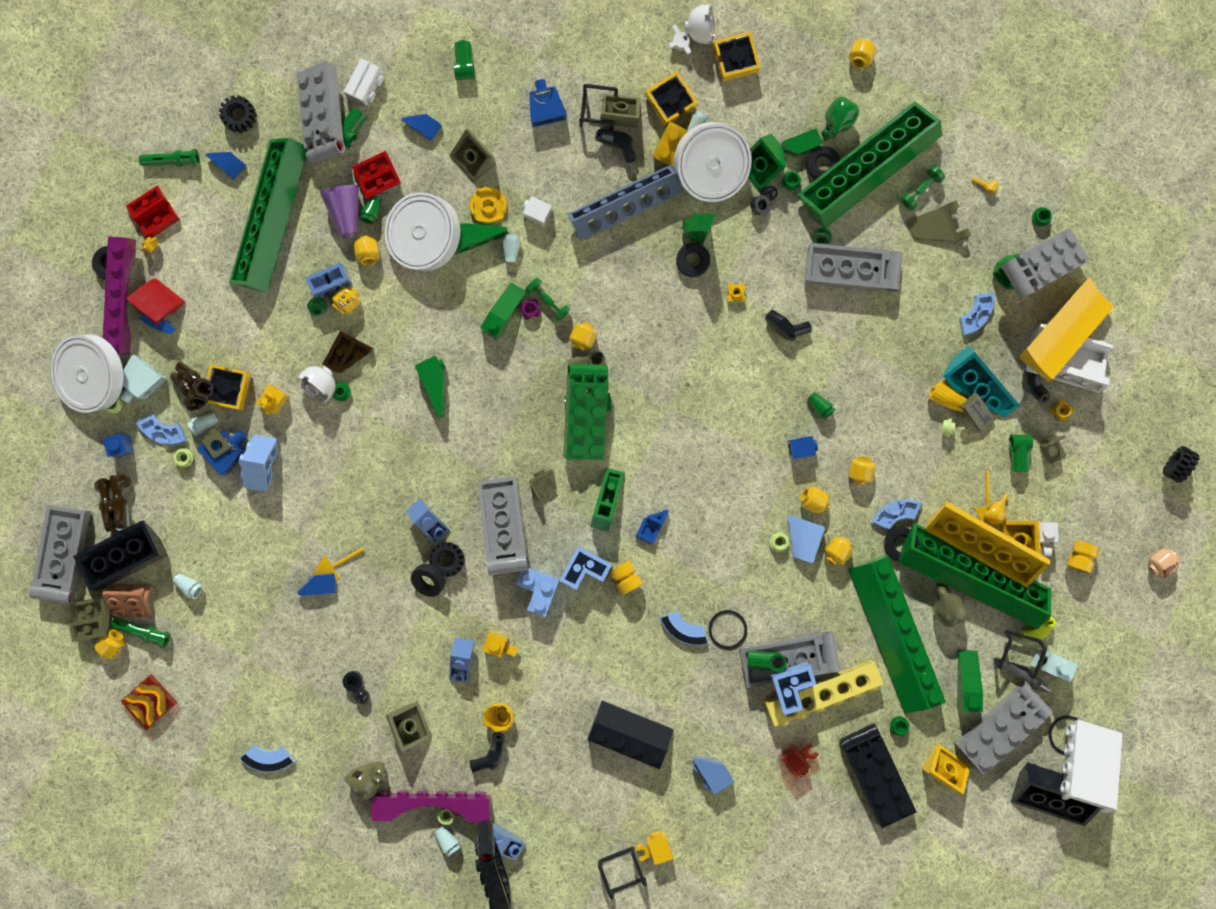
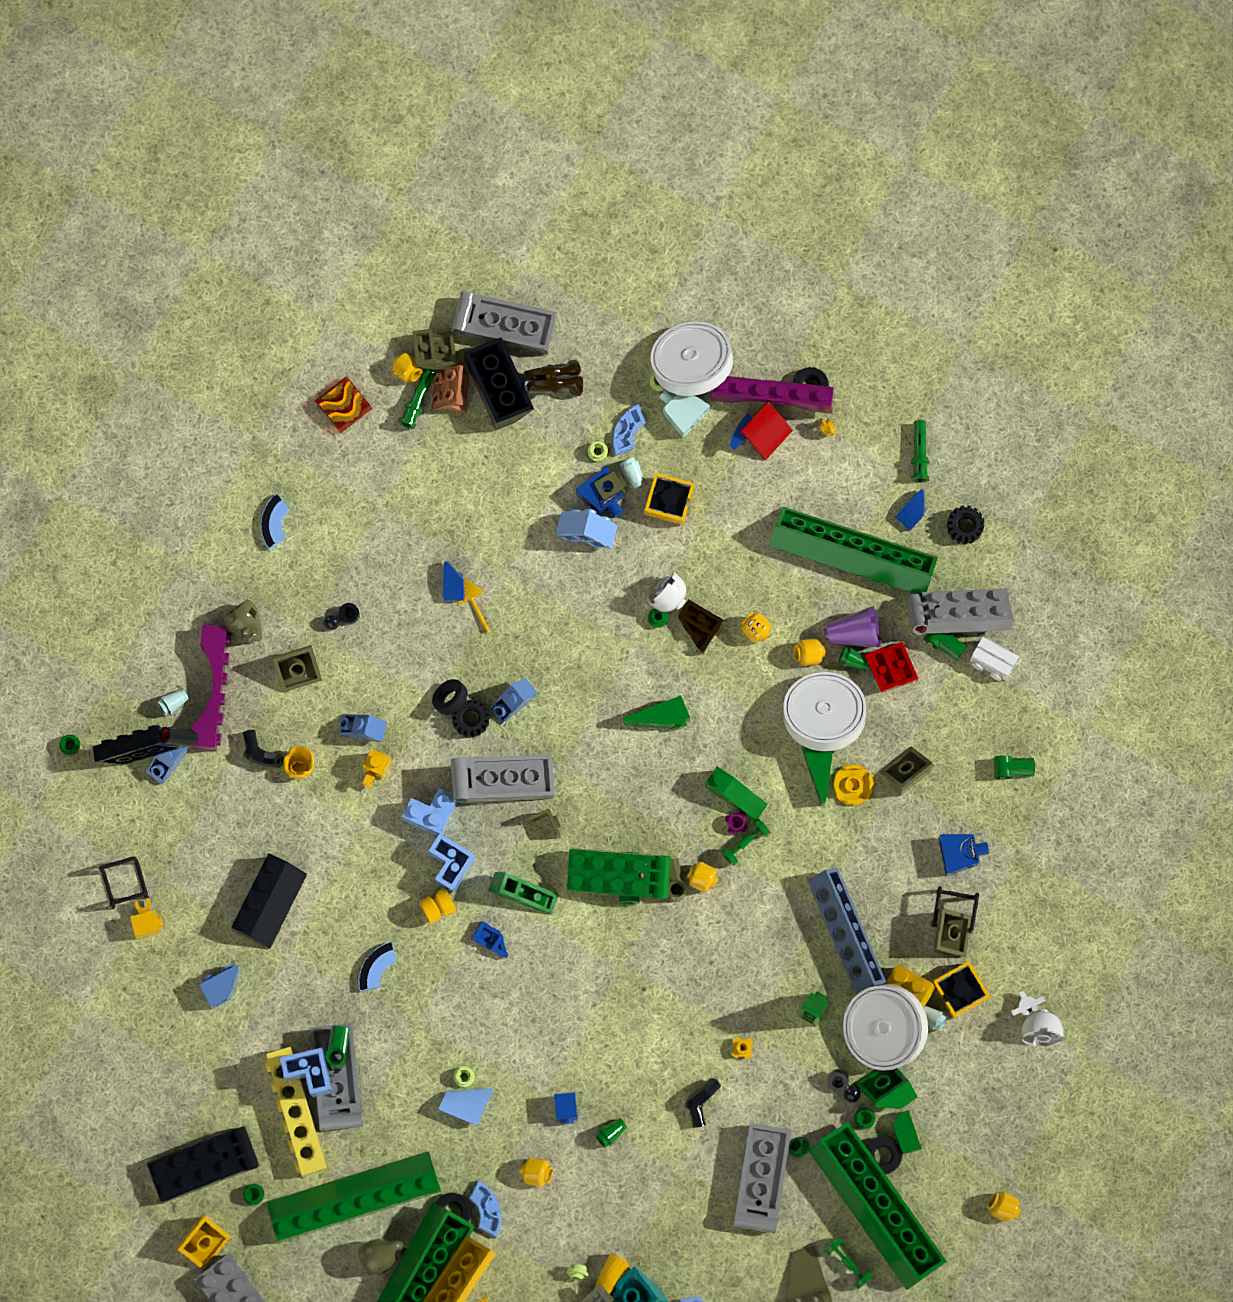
camera: 90 degrees right, 10 degrees down
(118, 445) = (614, 386): blue brick -> none
(152, 212) = (863, 431): red slope -> none
(188, 586) = (461, 450): light aqua cone -> none
(191, 386) = (672, 463): dark brown piece -> none
(271, 400) = (653, 545): yellow brick -> none
(317, 306) = (751, 597): green plate -> none
(328, 280) = (777, 611): medium blue brick -> none
(423, 124) = (945, 719): blue slope -> none
(445, 821) = (192, 702): yellowish green plate -> none
(511, 246) = (805, 806): light aqua cone -> none
(537, 211) = (843, 836): white brick -> none
(617, 139) = (919, 928): black arm -> none
(696, 271) = (776, 1015): black tyre -> none
(710, 627) = (368, 996): black piece -> none
(736, 56) = (1005, 1065): piece -> none
(796, 760) = (225, 1078): clear red brick -> none
(814, 500) = (507, 1117): yellow head -> none
(838, 551) = (449, 1139): yellow head -> none
(840, 117) = (931, 1175): green piece -> none
(969, 682) = (296, 1273): green slope -> none

